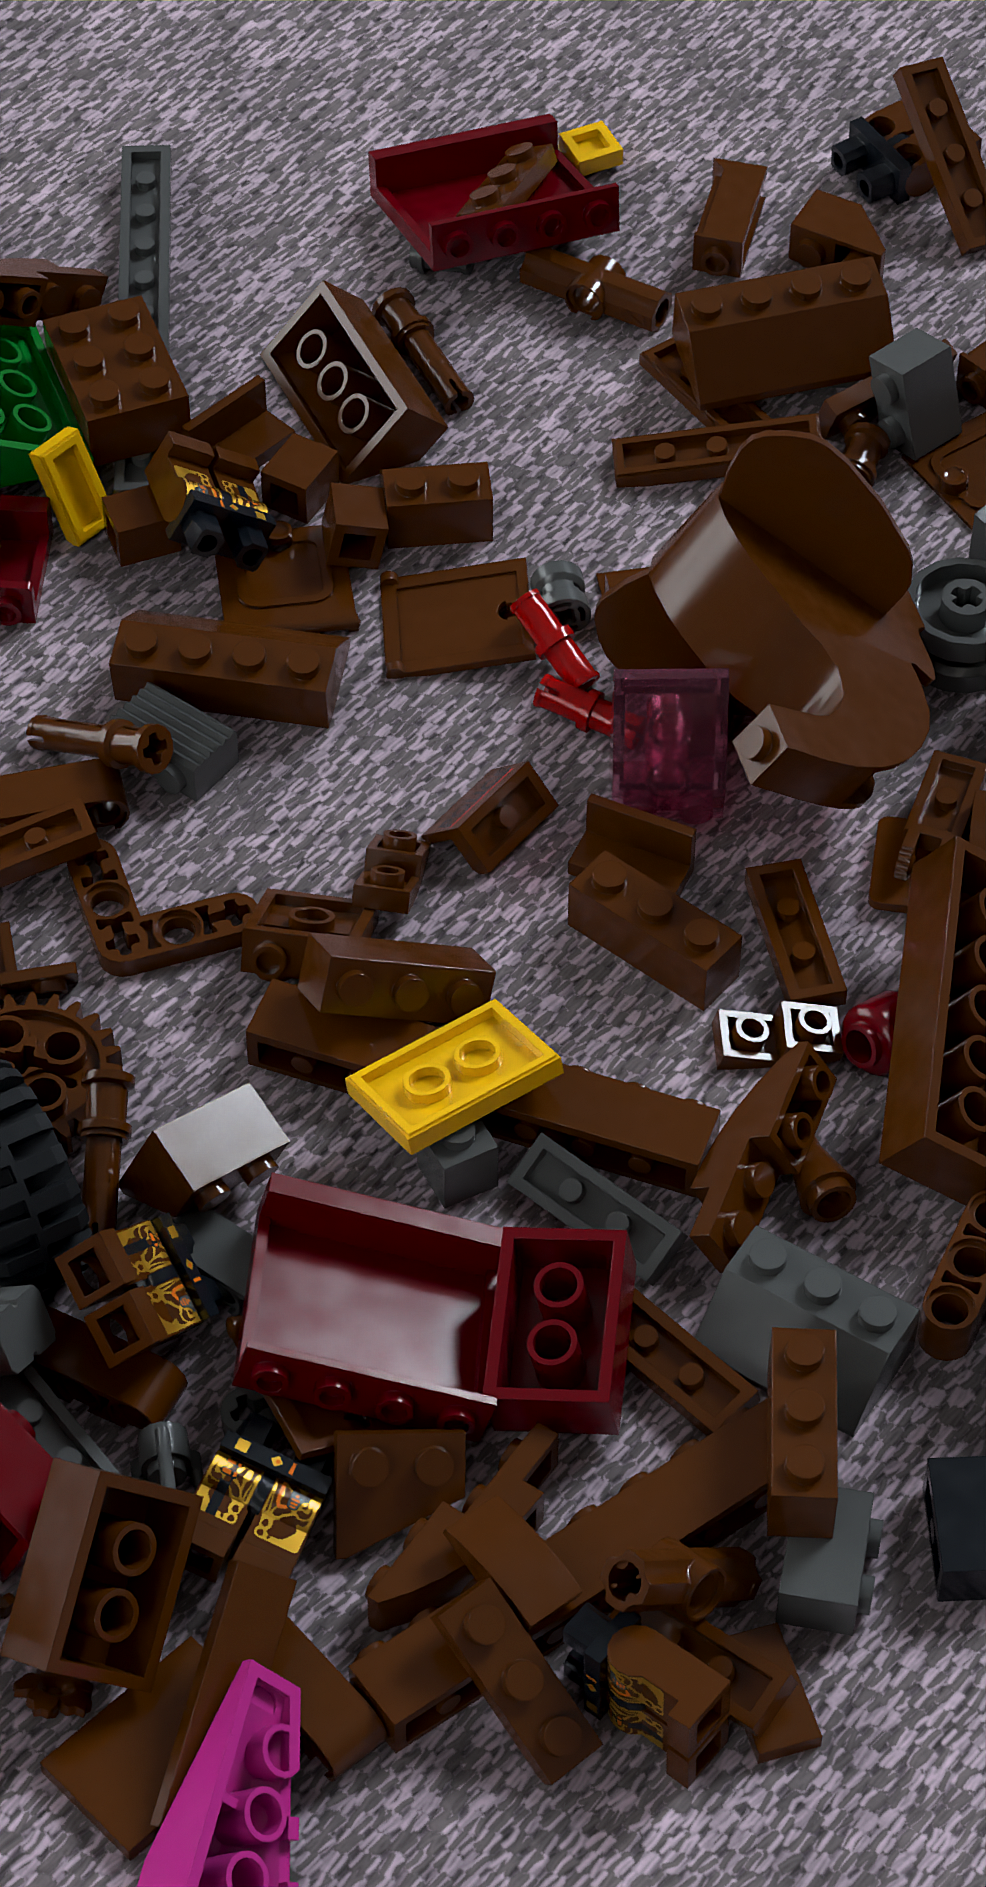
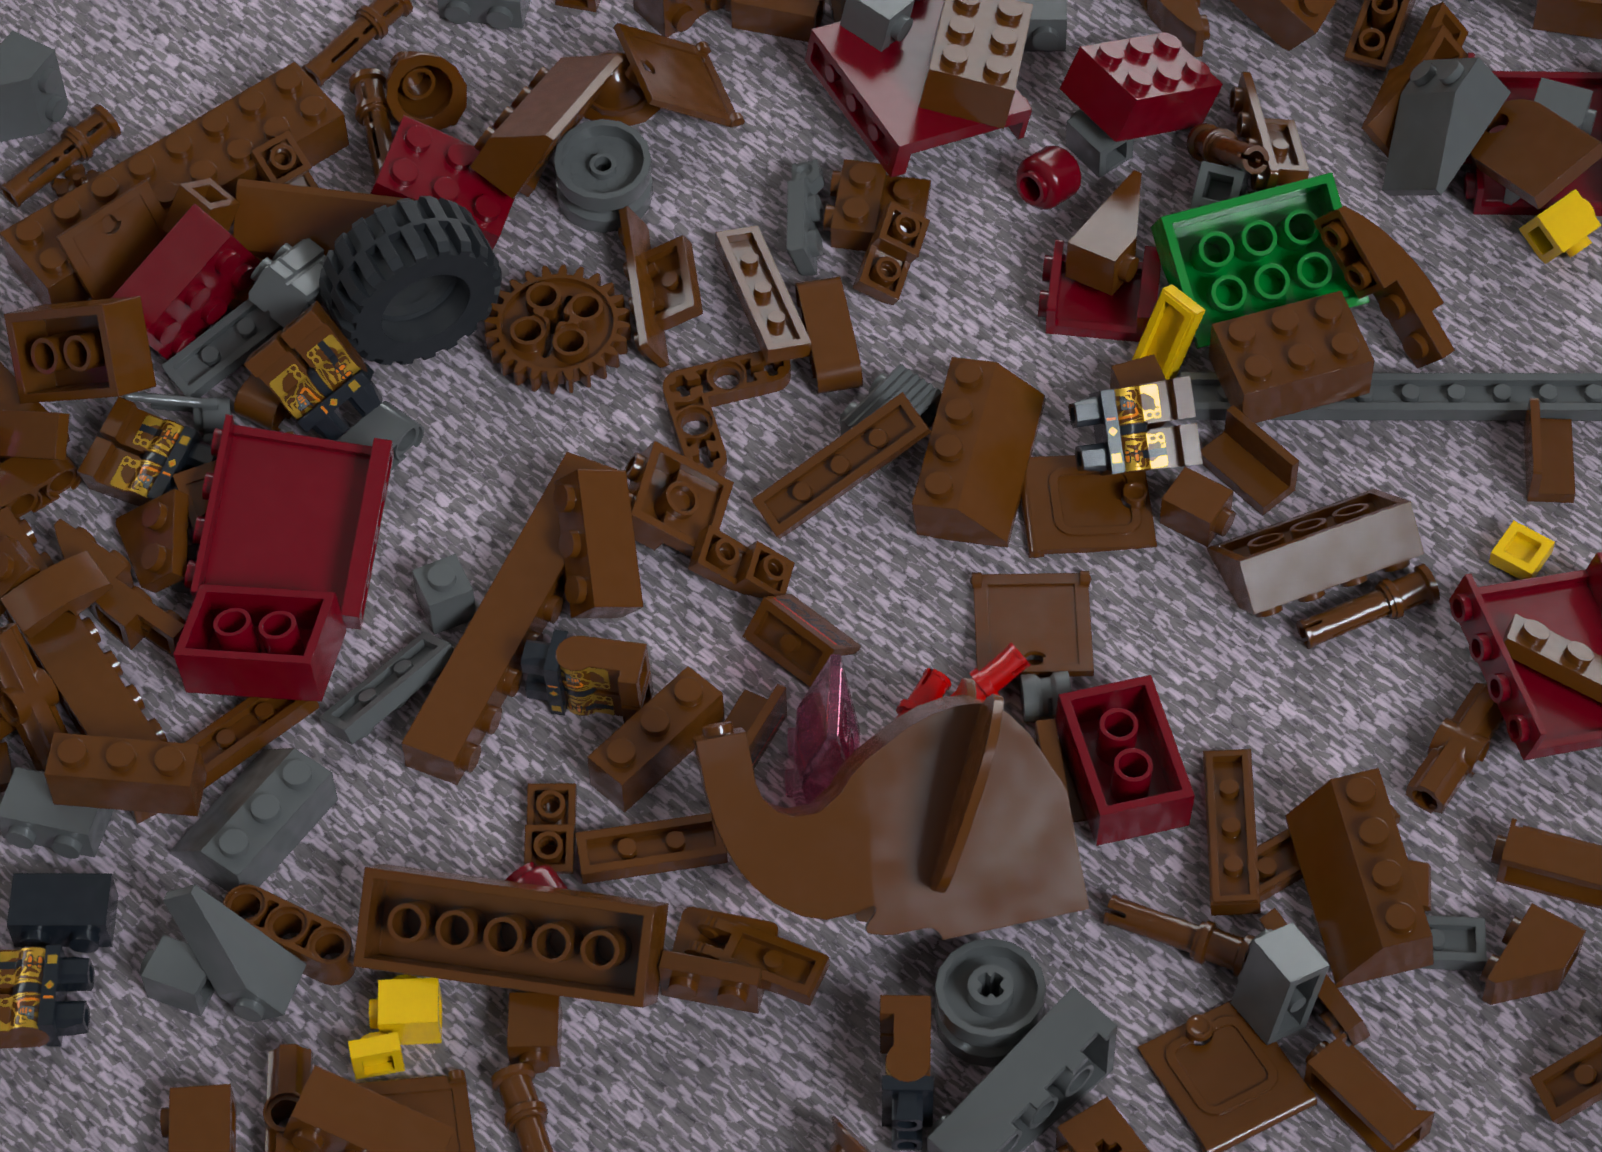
camera: 95 degrees right, 5 degrees up
(104, 1134) = (479, 365): reddish brown pin -> none
(114, 743) = (866, 363): reddish brown pin -> none
(206, 1154) = (442, 422): slope -> none
(222, 221) = (1548, 457): none -> reddish brown panel
(265, 764) = (841, 465): none -> reddish brown plate
(348, 240) = (1521, 551): none -> yellow plate
(354, 526) = (1132, 542): reddish brown brick -> none
(438, 504) = (1176, 607): reddish brown slope -> none
(453, 1076) = (491, 574): yellow tile -> none
(580, 995) = (588, 675): none -> hips
(630, 511) = (1124, 760): none -> dark red brick
(757, 1144) = (414, 786): reddish brown slope -> none
(824, 1186) = (400, 842): reddish brown cone -> none

